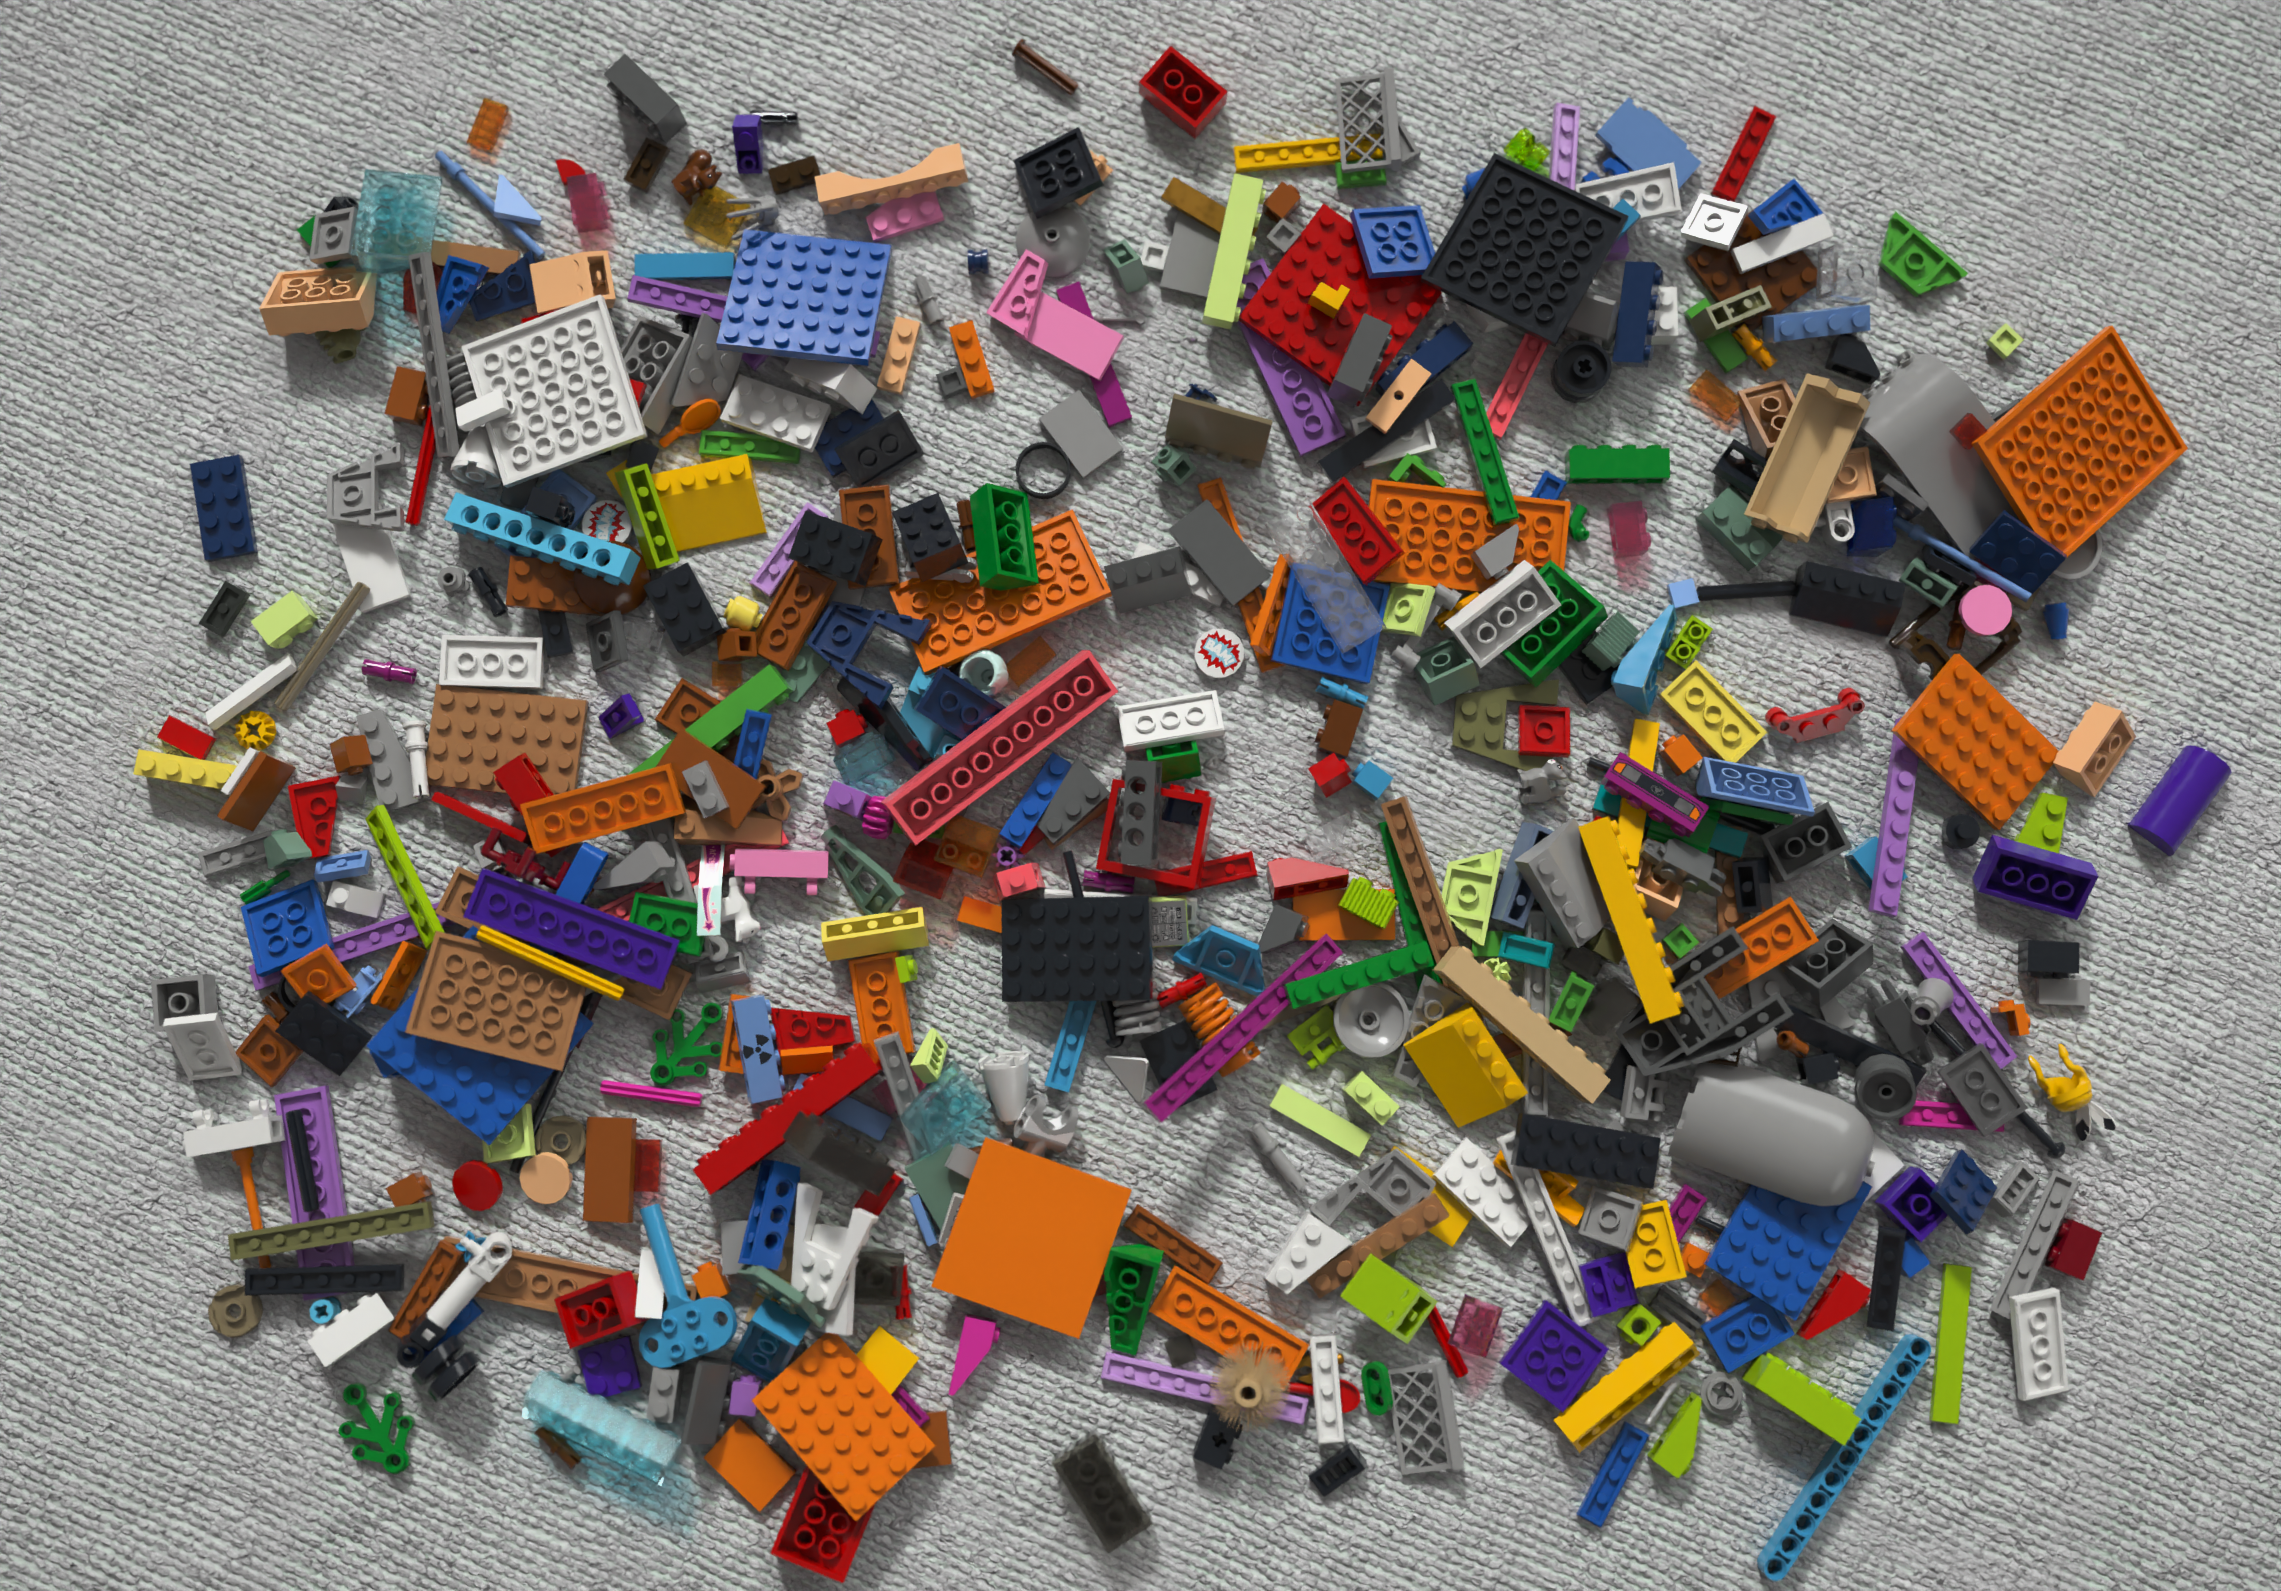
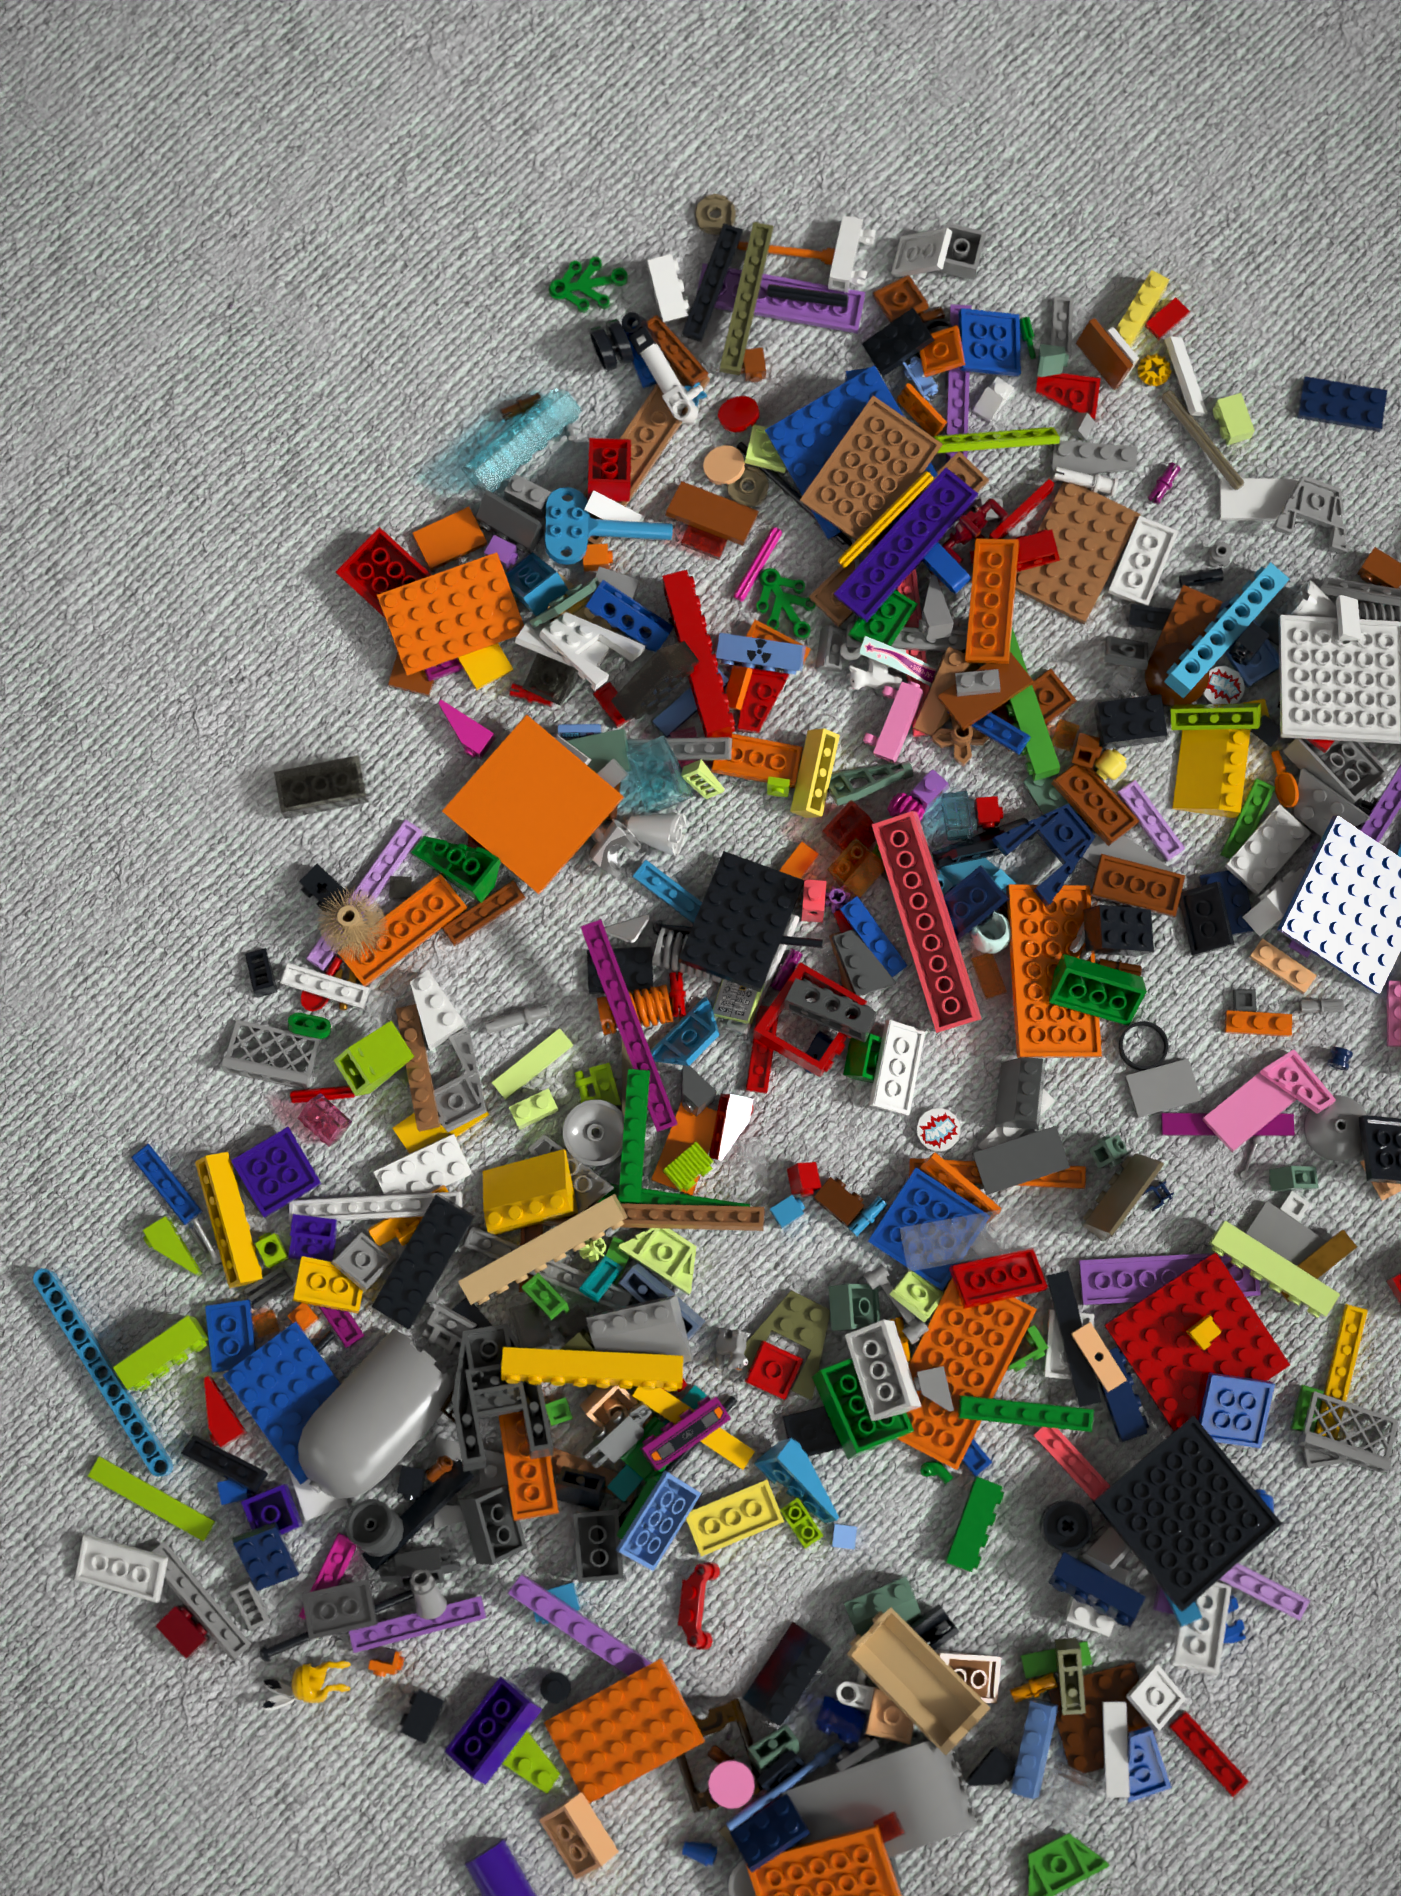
camera: 115 degrees right, 5 degrees down
(224, 609) = (1259, 378): pearl dark grey plate -> none
(317, 1310) = (692, 271): medium azure bush -> none
(342, 866) = (1022, 398): medium blue plate -> none
(351, 754) = (1107, 432): dark orange brick -> none
(422, 473) = (1315, 560): red axle -> none
(610, 1367) = (563, 463): dark purple plate -> none
(621, 716) = (1062, 644): dark purple slope -> none
(835, 548) = (1136, 853): black brick -> none
(1282, 202) = (1303, 1330): dark orange brick -> none
(1283, 236) = (1273, 1319): light grey tile -> none
(1360, 361) = (1139, 1333): dark grey brick -> none
(1526, 150) = (1276, 1559): clear neon green wheel -> none
(1611, 641) = (826, 1454): sand green brick -> none
(1628, 529) = (916, 1511): clear pink brick -> none
(1646, 141) = (1245, 1668): medium blue piece -> none
(1679, 754) = (711, 1475): orange brick -> none
(1716, 395) = (1004, 1637): clear orange tile -> none
(1724, 1404) = (182, 1295): light grey gear -> none
(1746, 590) = (826, 1591): black axle -> none
(2063, 992) = (389, 1718): light grey tile -> none

